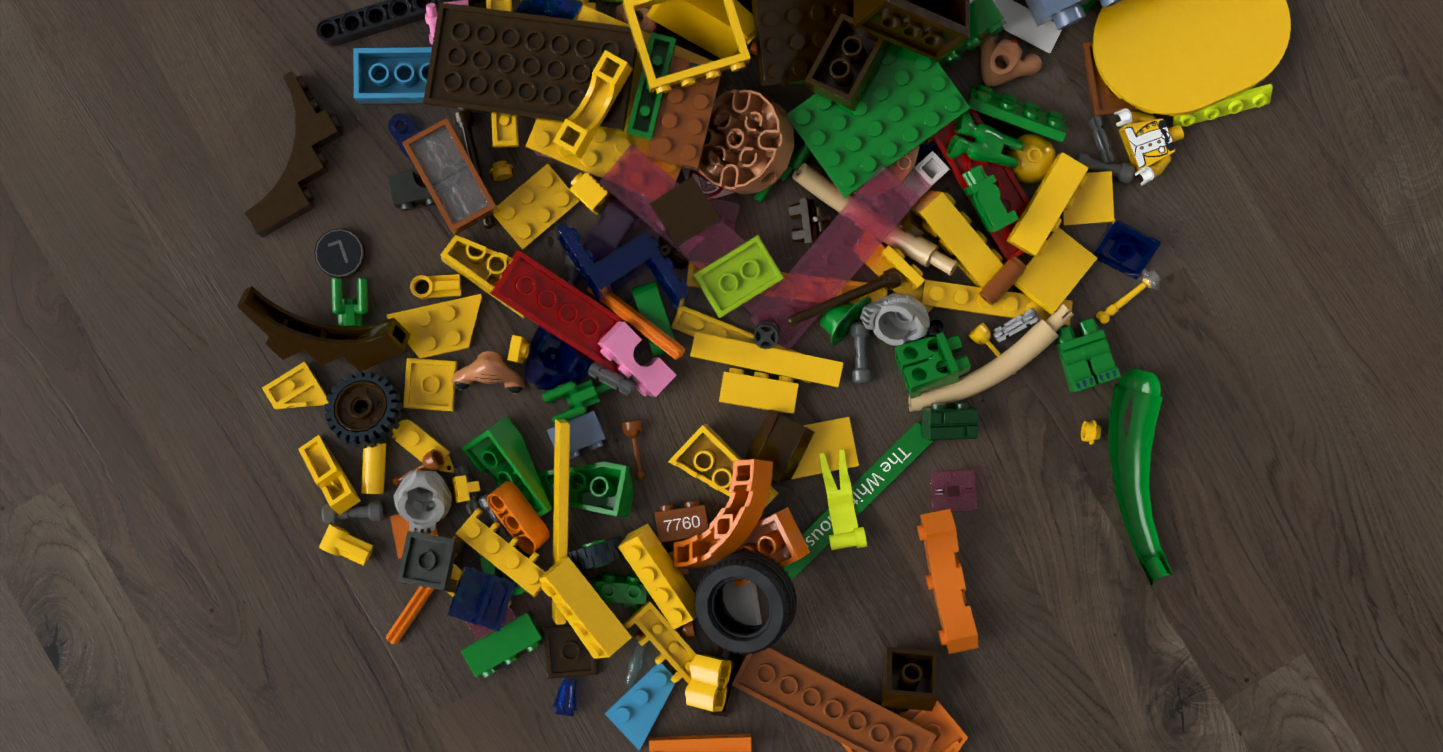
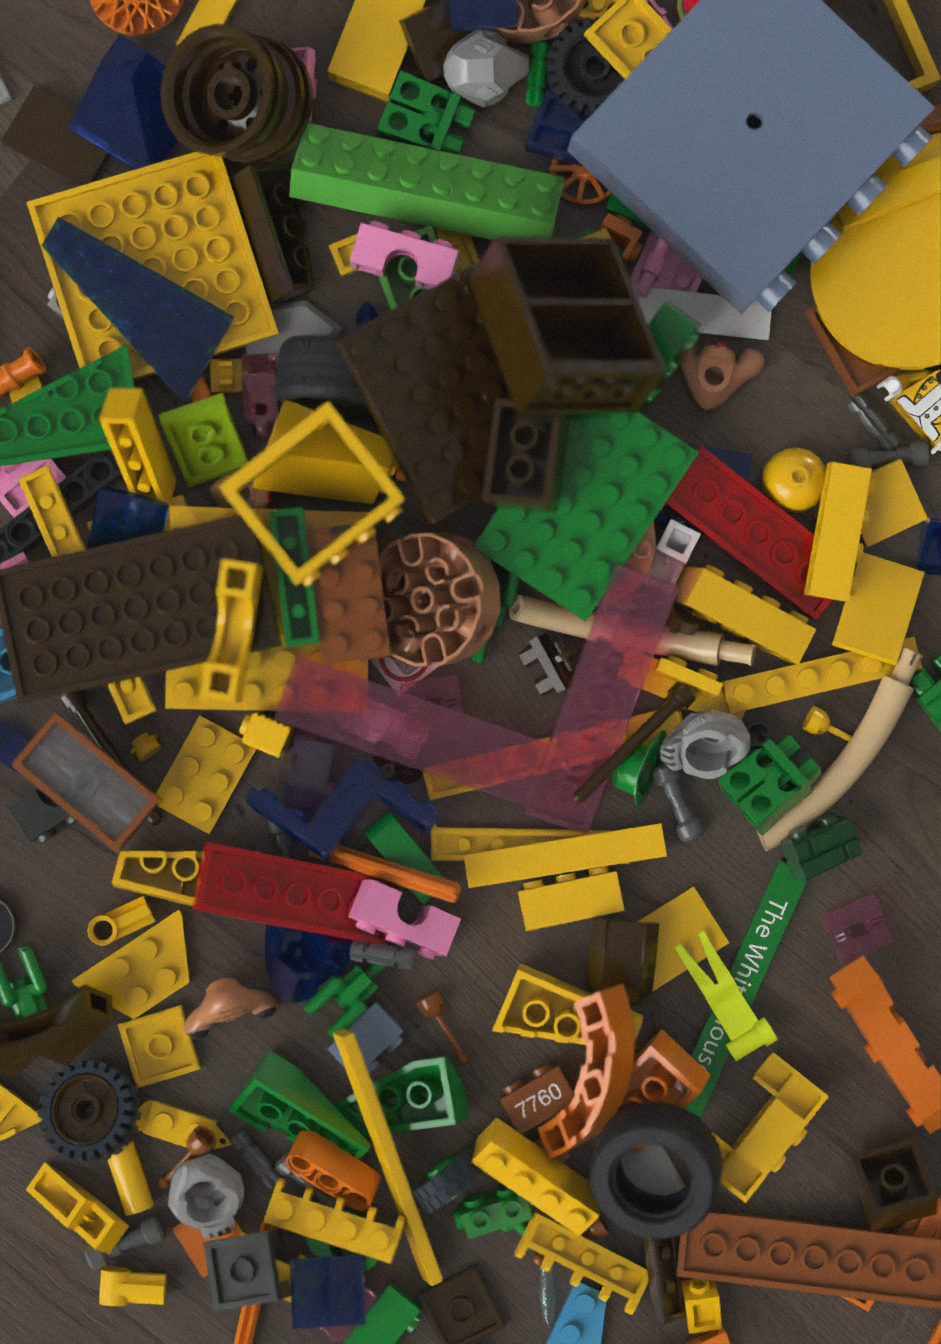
camera: 20 degrees left, 0 degrees up
(462, 488) = (251, 1162): yellow tile -> none
(518, 349) = (253, 963): yellow plate -> none
(584, 609) = (459, 1256): yellow wedge -> none
(684, 211) = (394, 713): dark brown tile -> none
(708, 682) = (647, 1286): yellow brick -> none
(738, 276) = (491, 767): lime tile -> none
(741, 713) = (701, 1305): none -> yellow bracket
(763, 338) = (554, 832): pearl dark grey wheel -> none
(838, 608) = (772, 1129): none -> yellow bracket
(986, 200) = (761, 556): green hips -> none
(987, 143) = (736, 487): green piece -> none
(1002, 280) = (819, 647): dark orange piece -> none
(1016, 325) = (856, 694): axle -> none
(1017, 113) = (757, 431): green plate -> none

